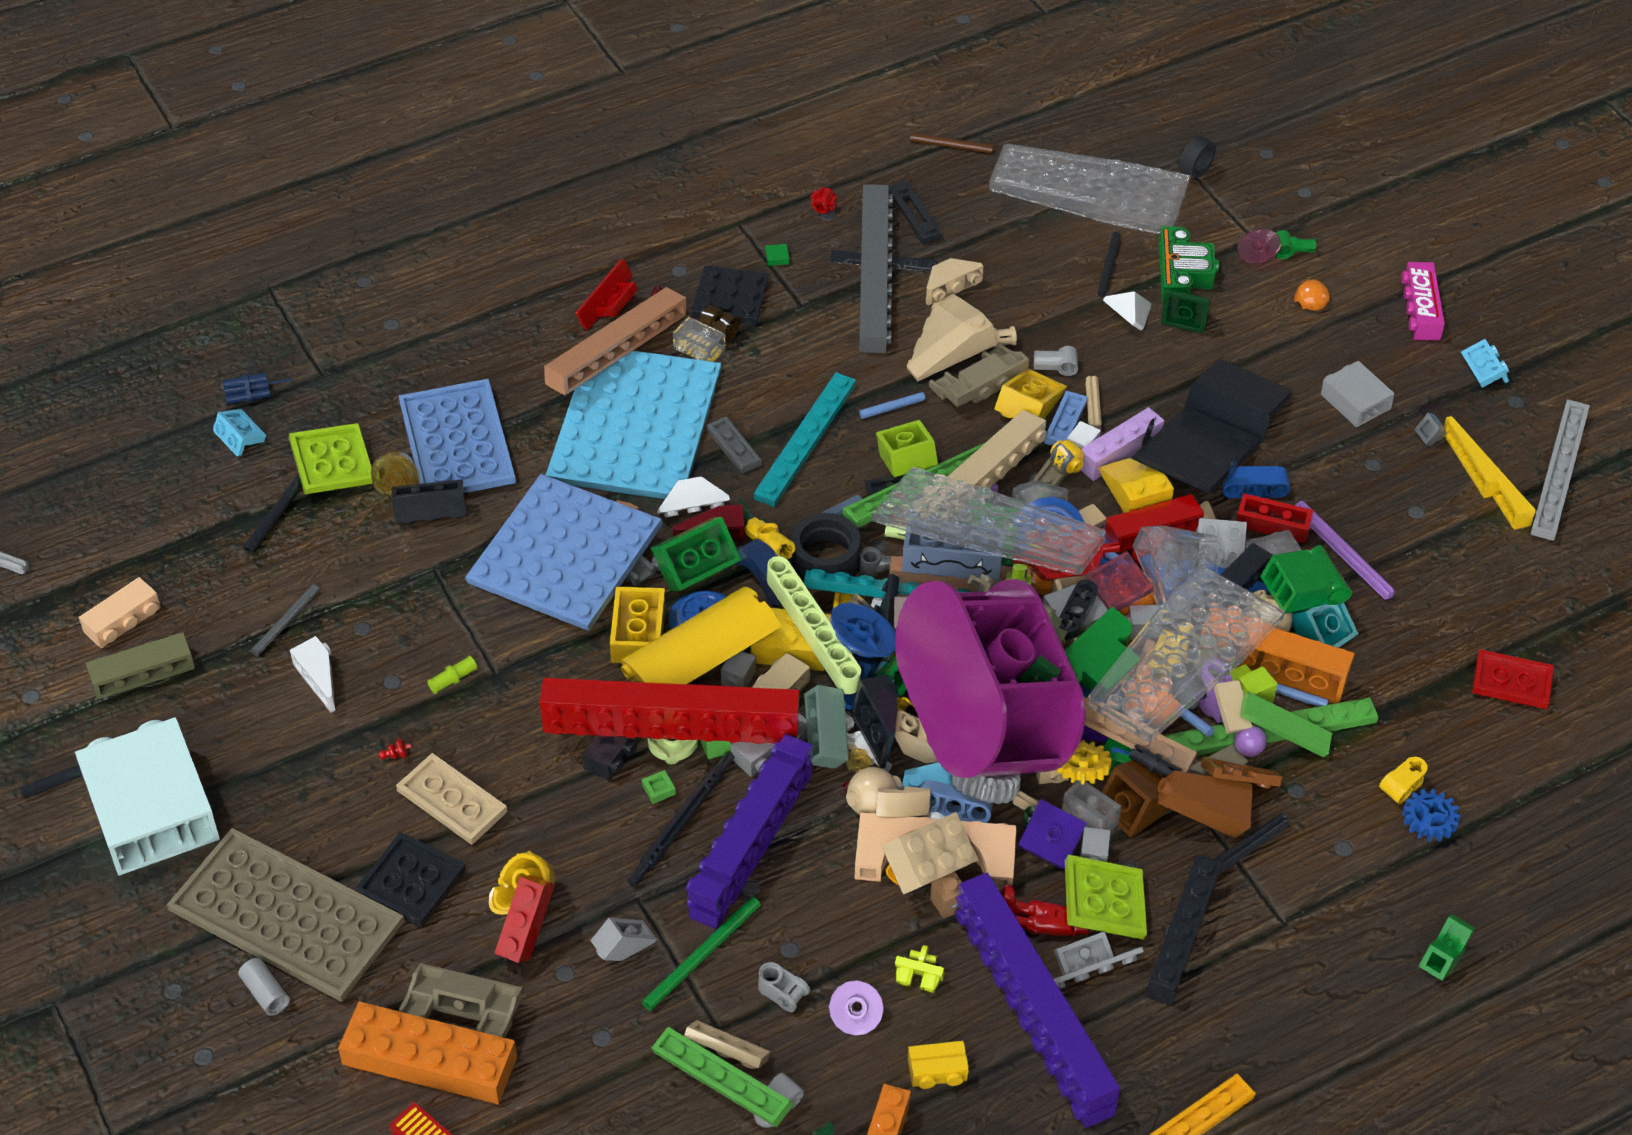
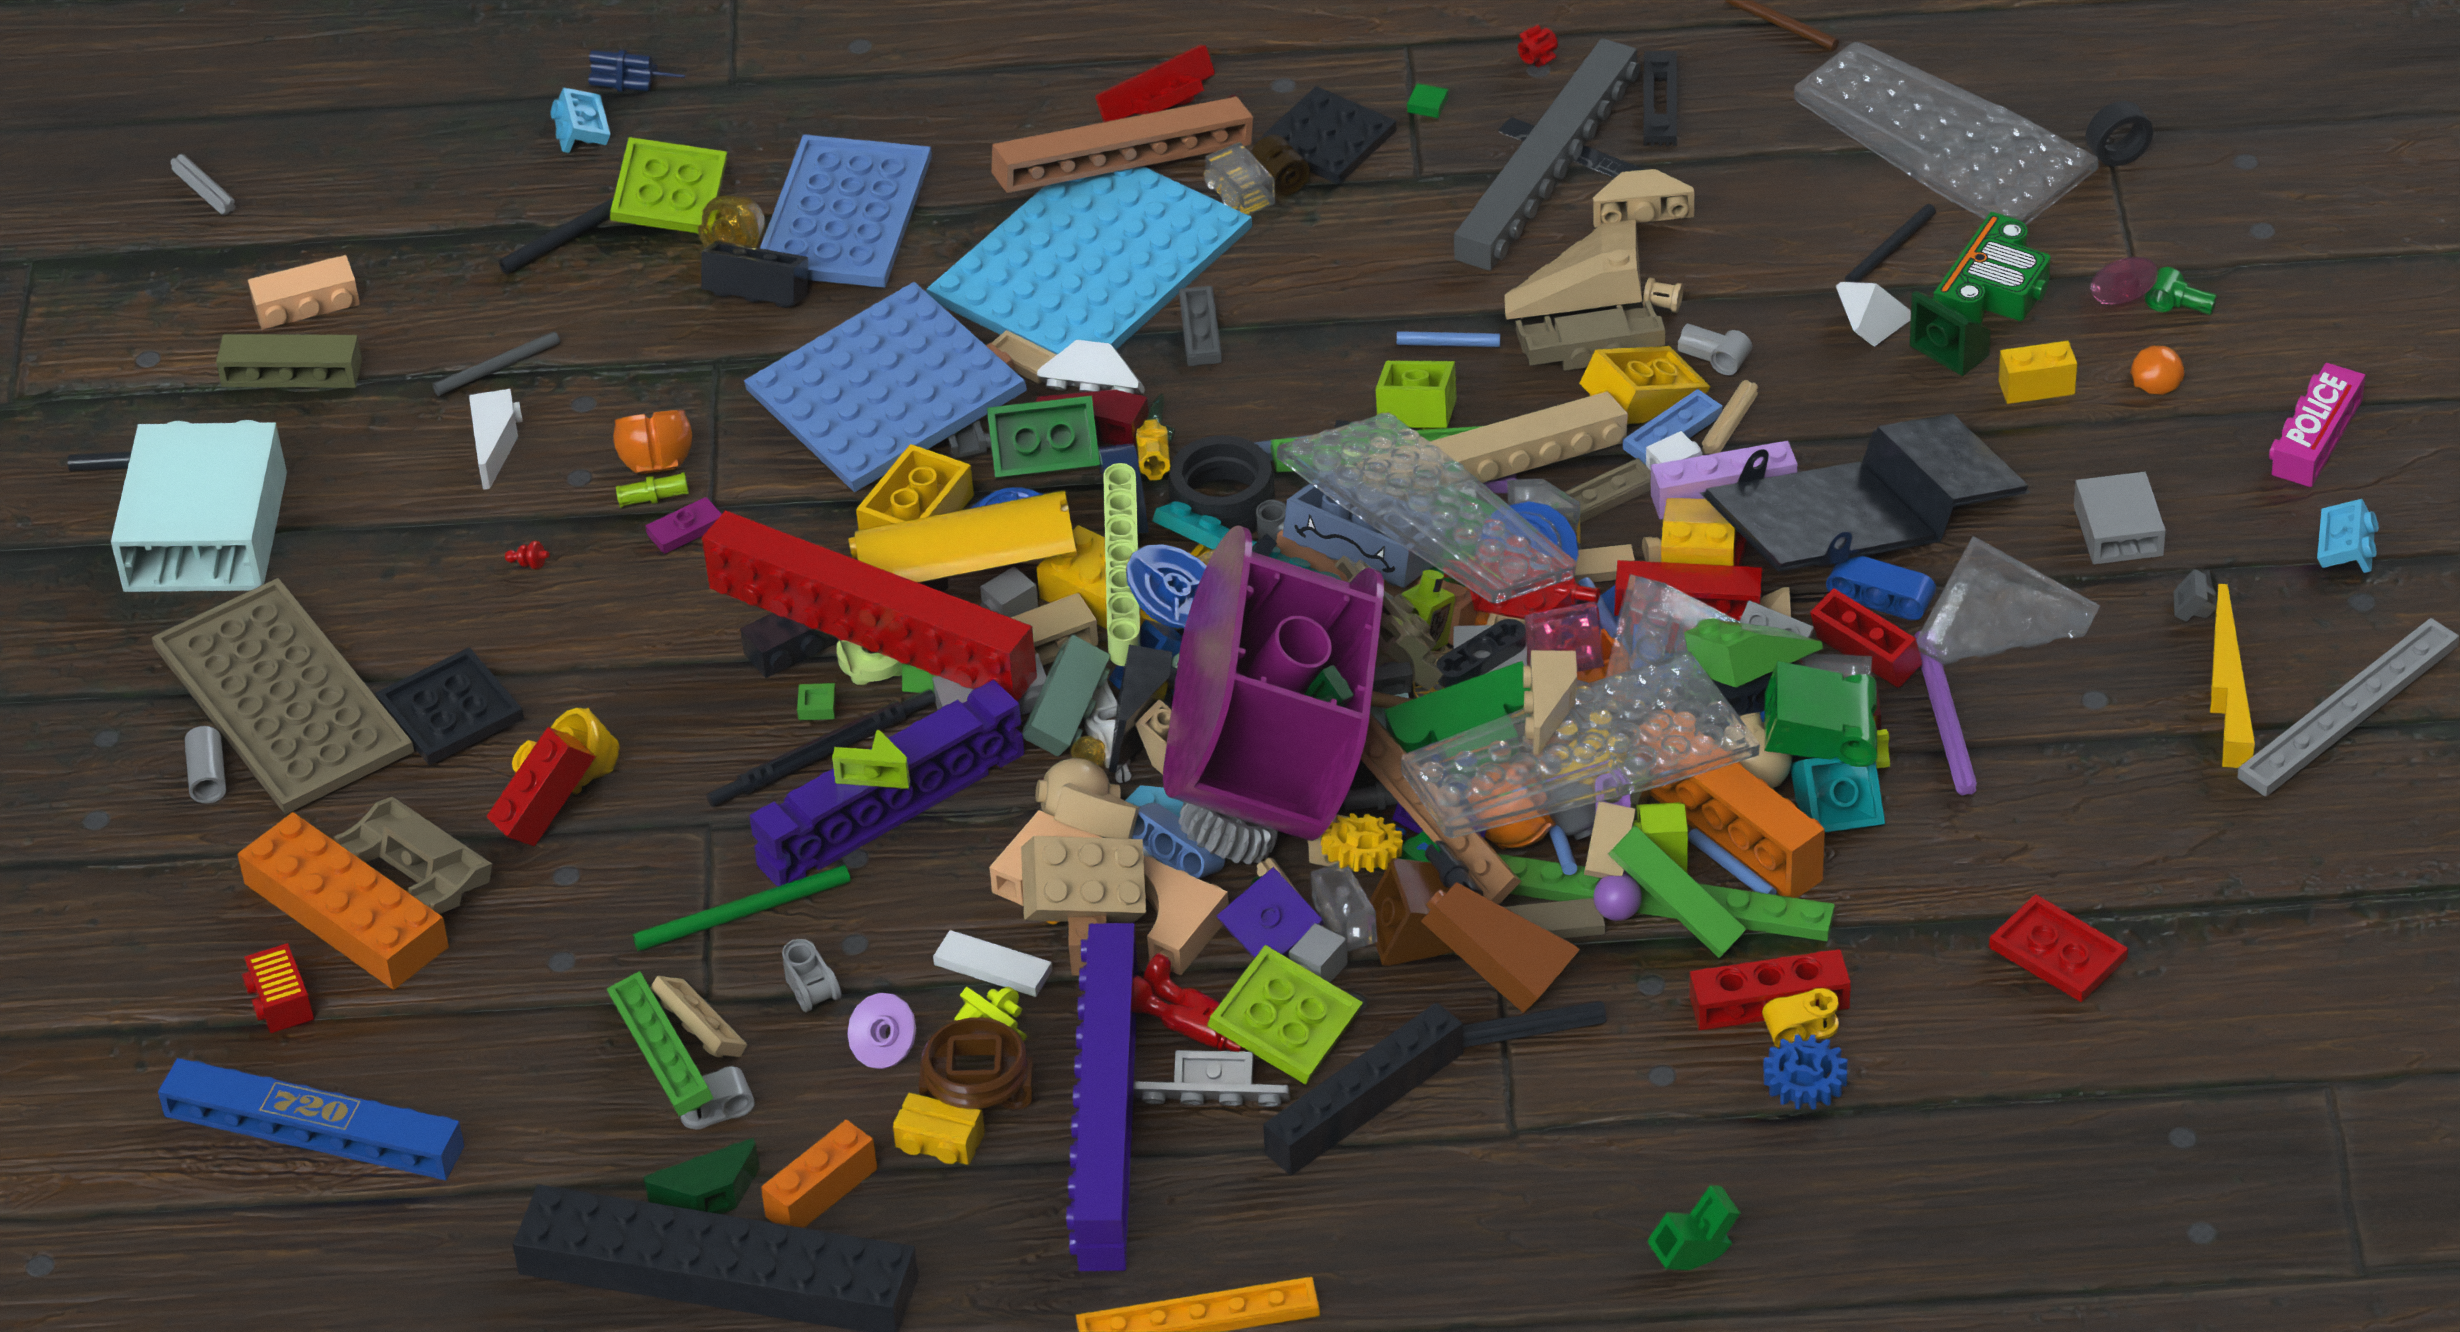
camera: 30 degrees right, 5 degrees down
(439, 641) = (653, 442): none -> orange piece
(452, 798) = (557, 632): tan plate -> none
(488, 692) = (683, 525): none -> magenta plate
(622, 938) = (653, 855): light grey slope -> none
(646, 501) = (1025, 354): none -> tan tile
(758, 822) = (876, 767): none -> lime slope
(804, 440) = (1299, 346): teal plate -> none
(891, 930) = (992, 963): none -> white tile
(919, 1025) = (1006, 1084): none -> reddish brown piece
(1067, 456) = (1629, 471): yellow head -> none
(1108, 504) = (1651, 549): none -> tan tile
(1152, 621) = (1551, 693): none -> tan slope
(1233, 552) = (1744, 651): none -> bright green slope
(1240, 772) = (1573, 929): dark orange wing -> none
(1251, 317) = (2037, 372): none -> yellow brick
(1330, 472) = (2000, 606): none -> clear slope
(1365, 772) = (1740, 991): none -> red brick

